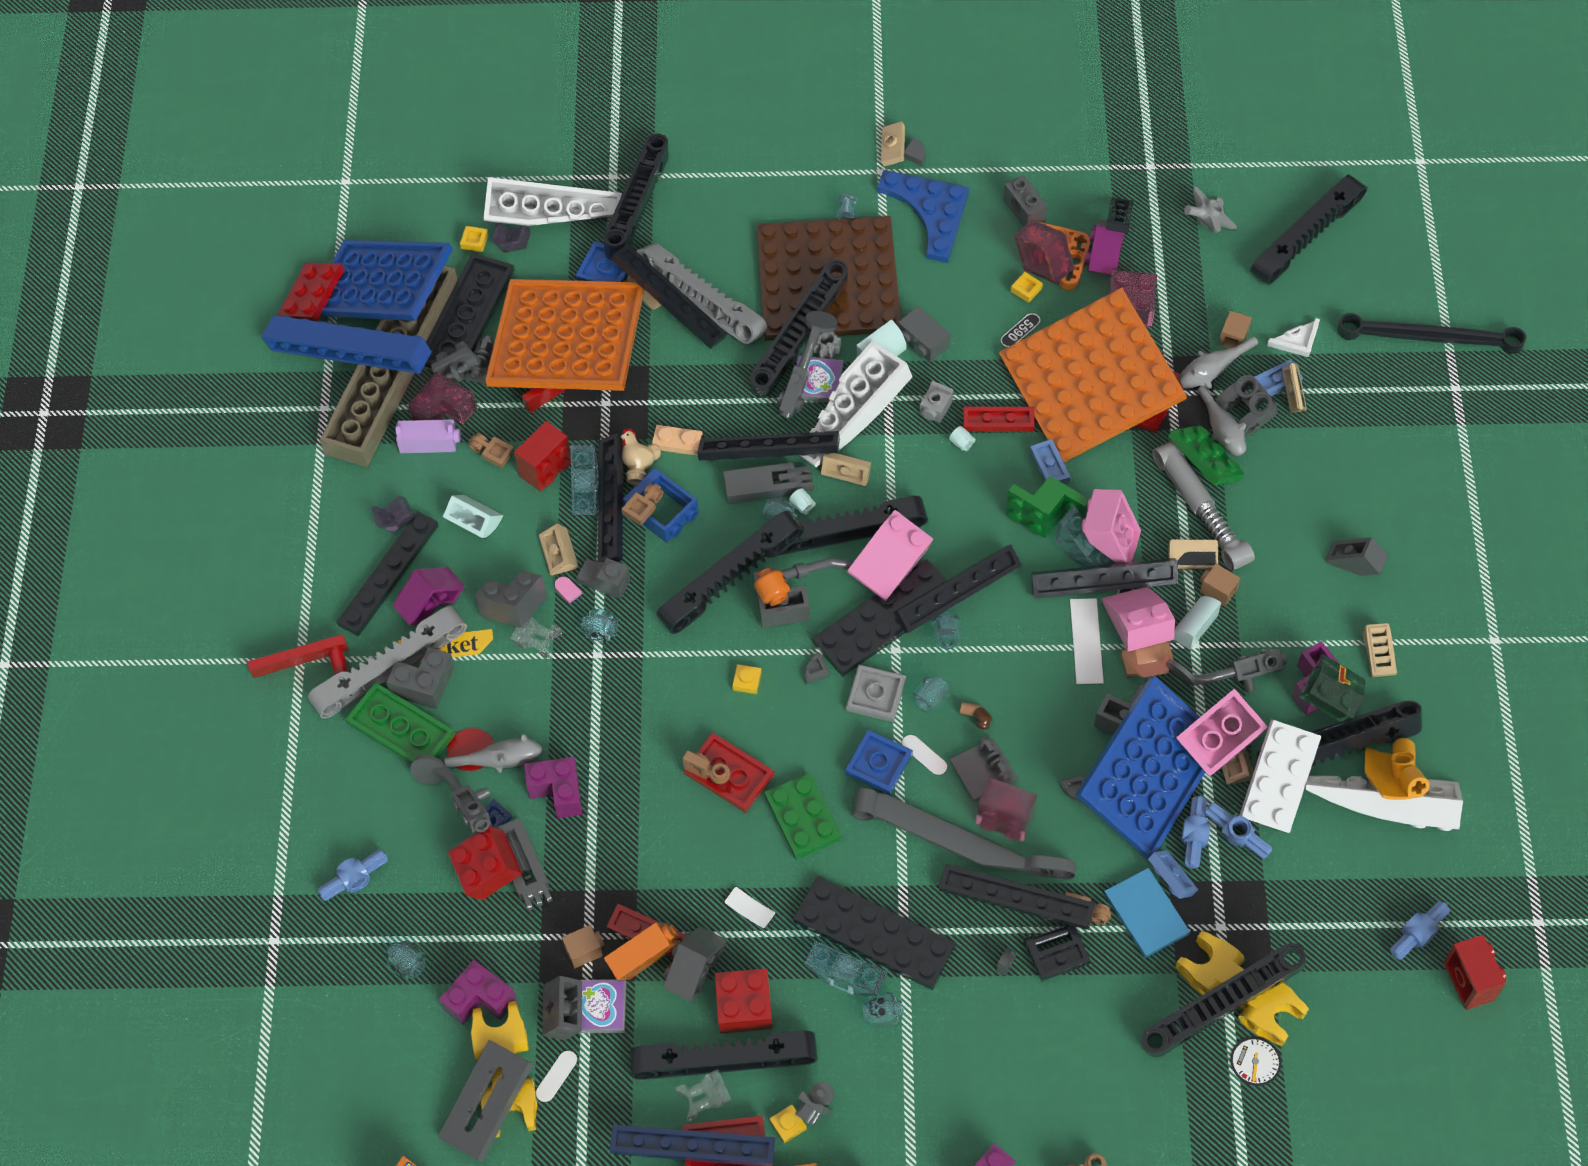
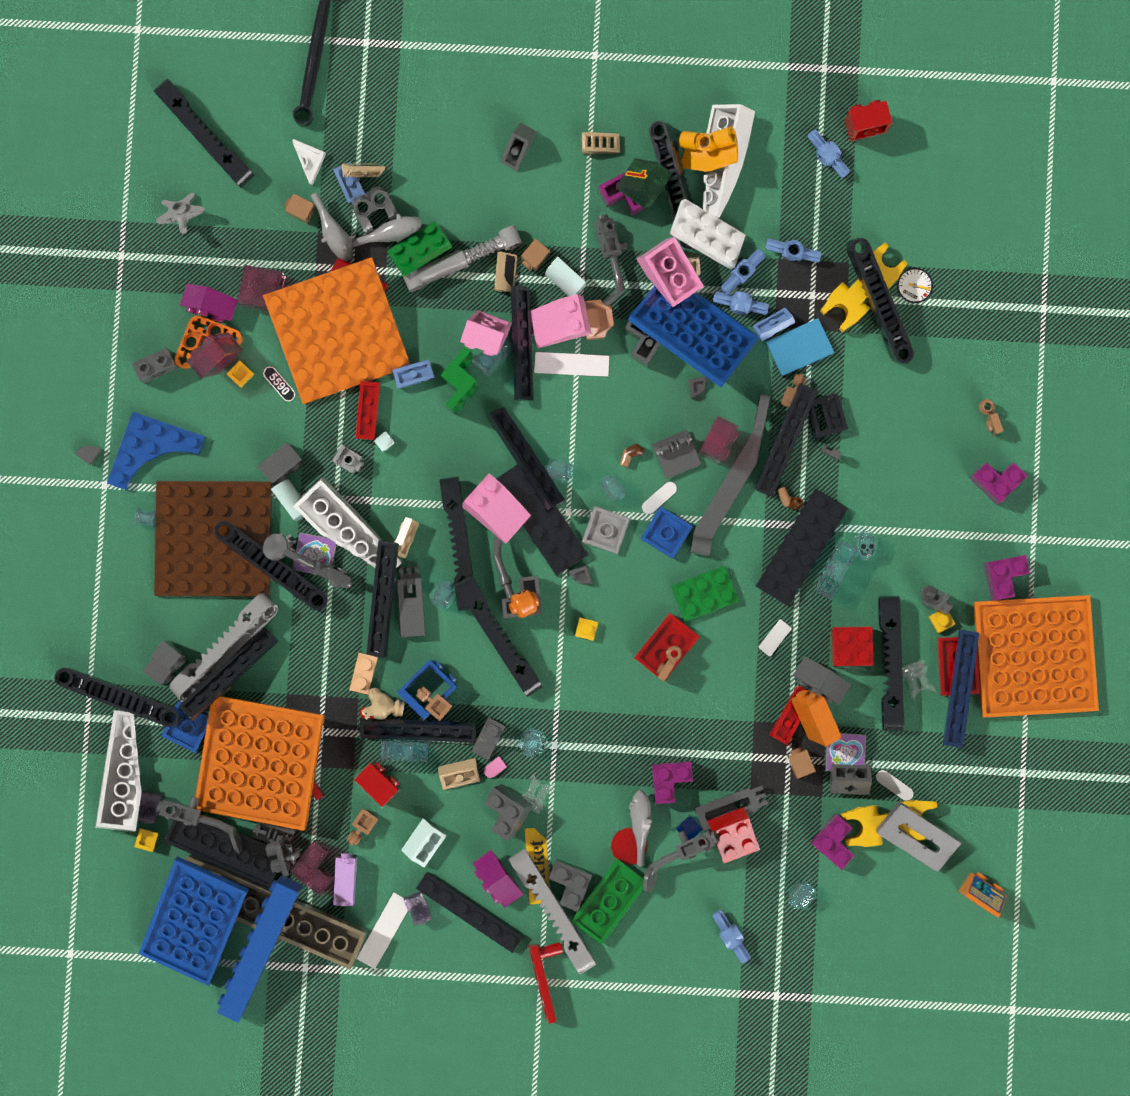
camera: 85 degrees left, 25 degrees up
(311, 291) = (191, 981): red plate -> none
(363, 484) = (383, 931): none -> white sticker
(500, 273) = (193, 816): none -> dark grey piece
(681, 236) = (165, 662): none -> dark grey brick
(802, 501) = (432, 575): light aqua hose -> none
(893, 144) = (79, 472): tan plate -> none
(935, 911) = (789, 501): none -> arm
(1119, 215) = (184, 288): black tile -> none
(1275, 903) = (783, 247): none -> medium blue axle

